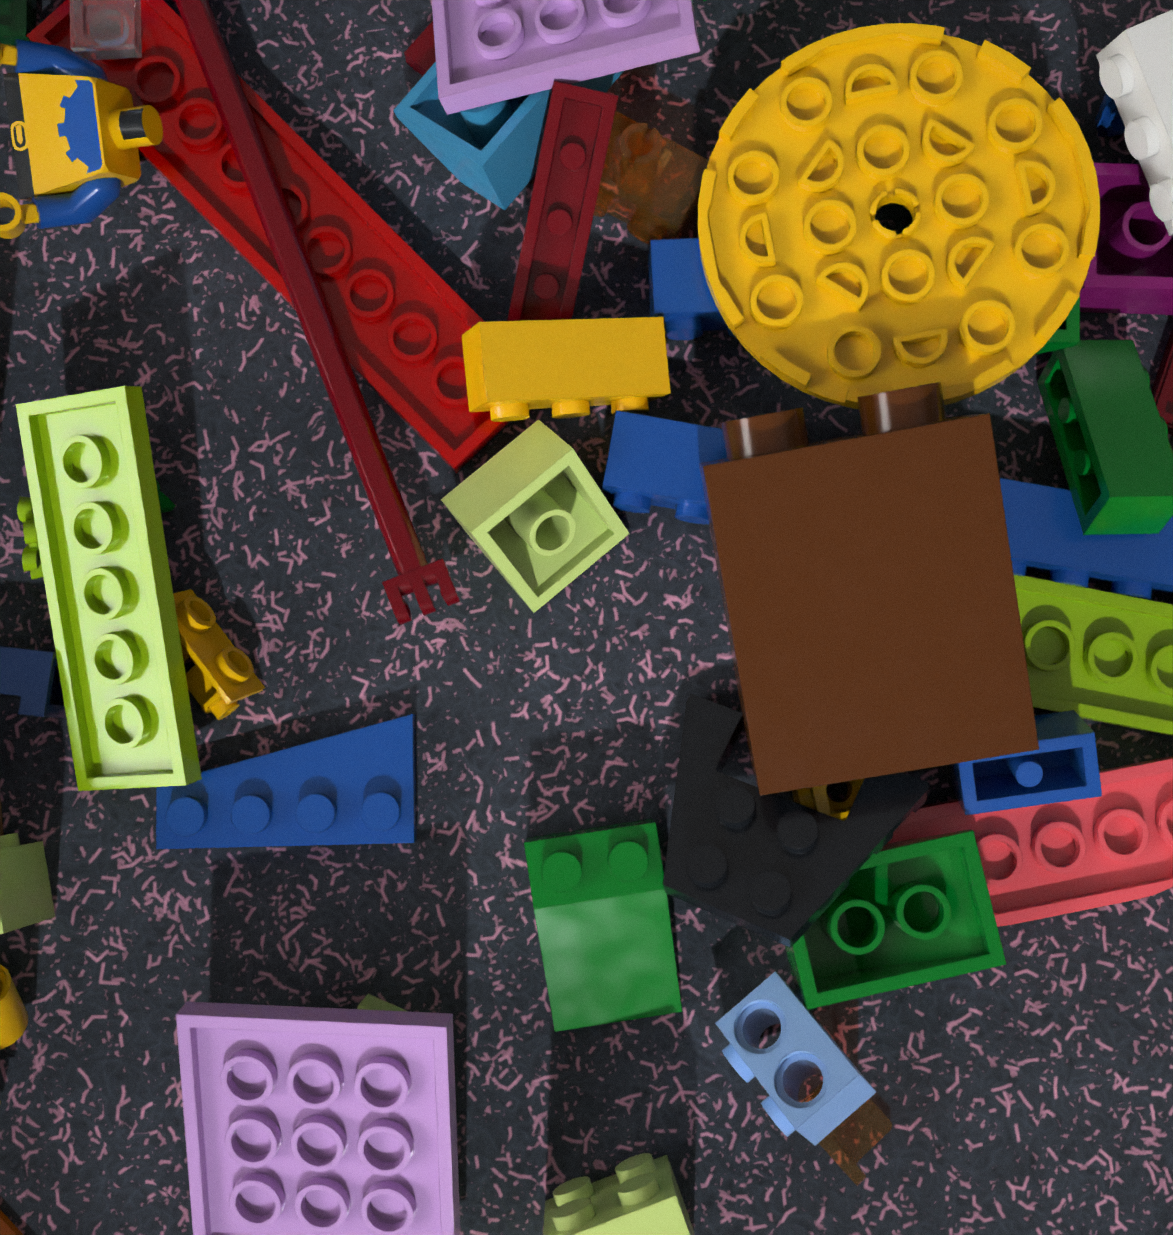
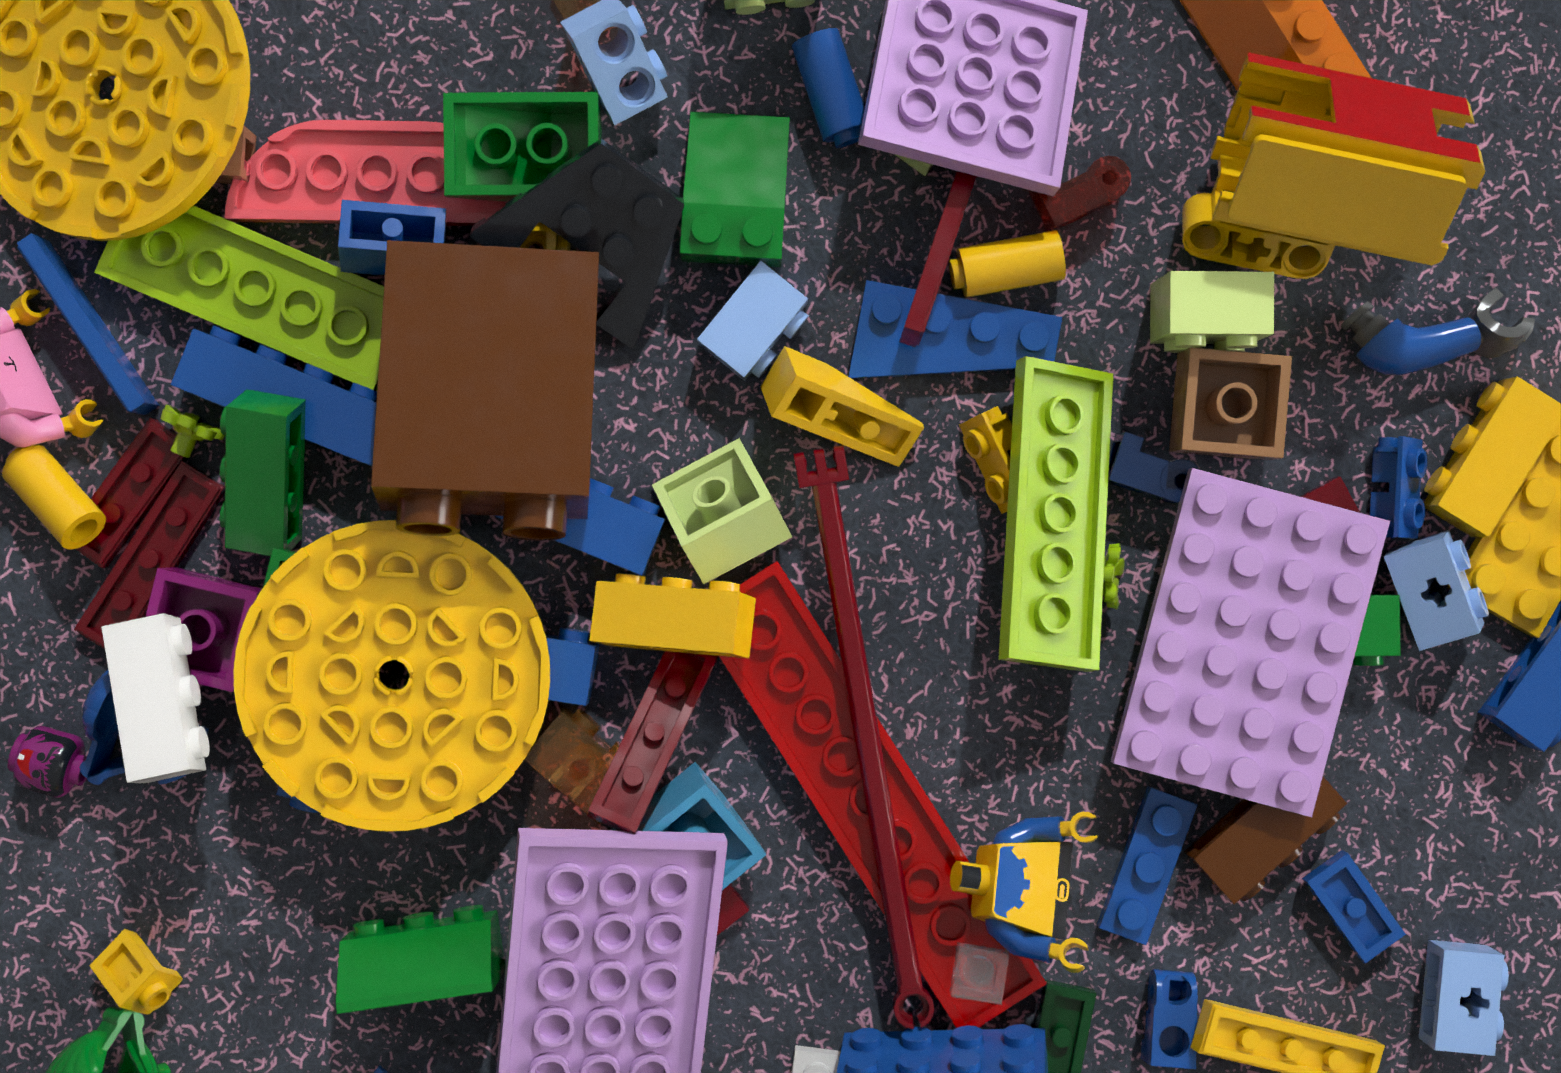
camera: 165 degrees left, 5 degrees up
(143, 1024) = (1084, 194): none -> clear red leg
(235, 902) = (1008, 264): none -> yellow brick
(324, 888) = (937, 259): none -> dark red tile
(421, 672) = (837, 408): none -> yellow slope
(508, 1083) = (830, 86): none -> blue brick
(543, 758) = (754, 321): none -> light blue brick

